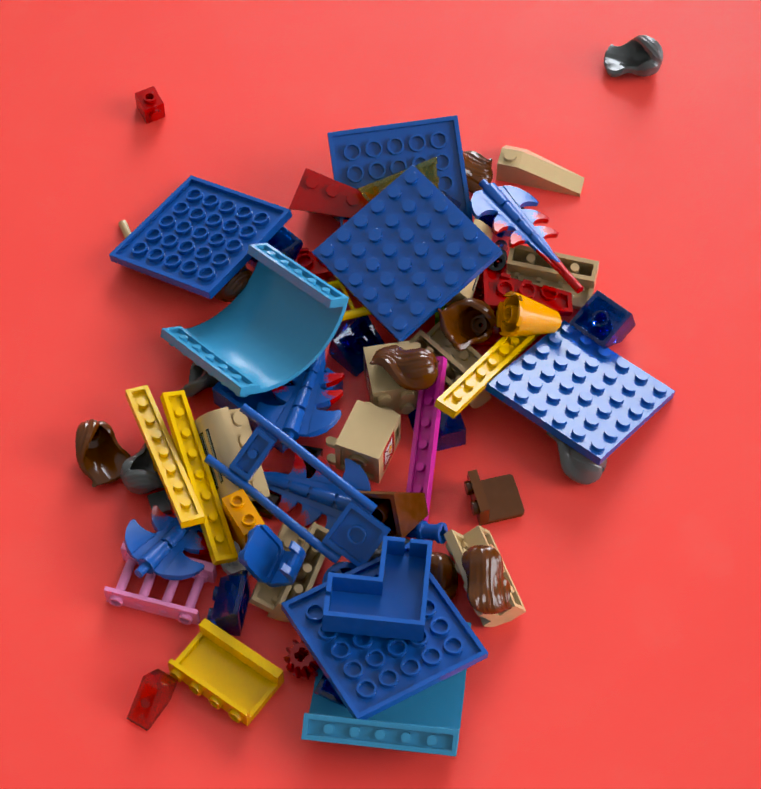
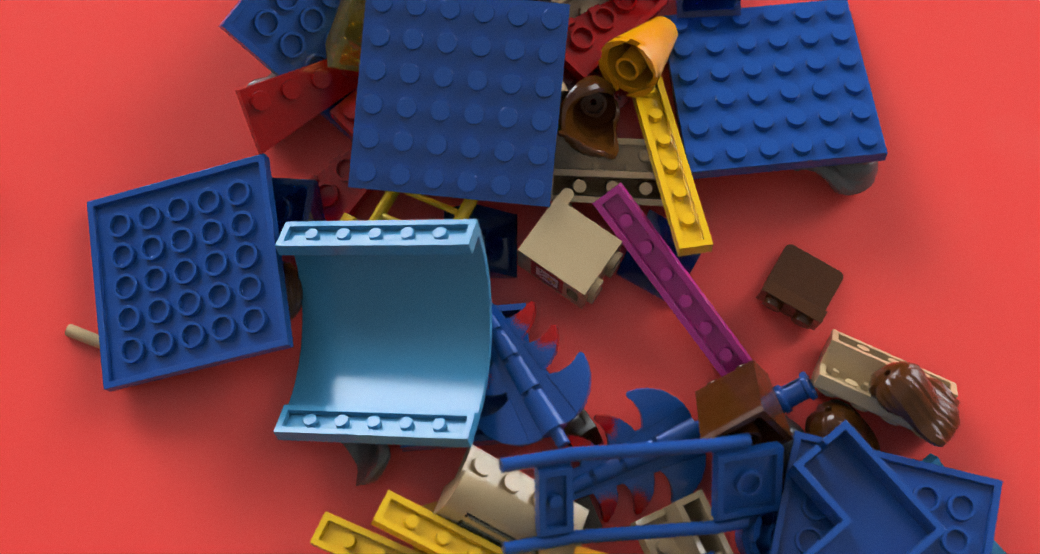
camera: 45 degrees left, 20 degrees up
(367, 439) = (620, 348): tan container -> none
(409, 368) = (598, 234): reddish brown piece -> none

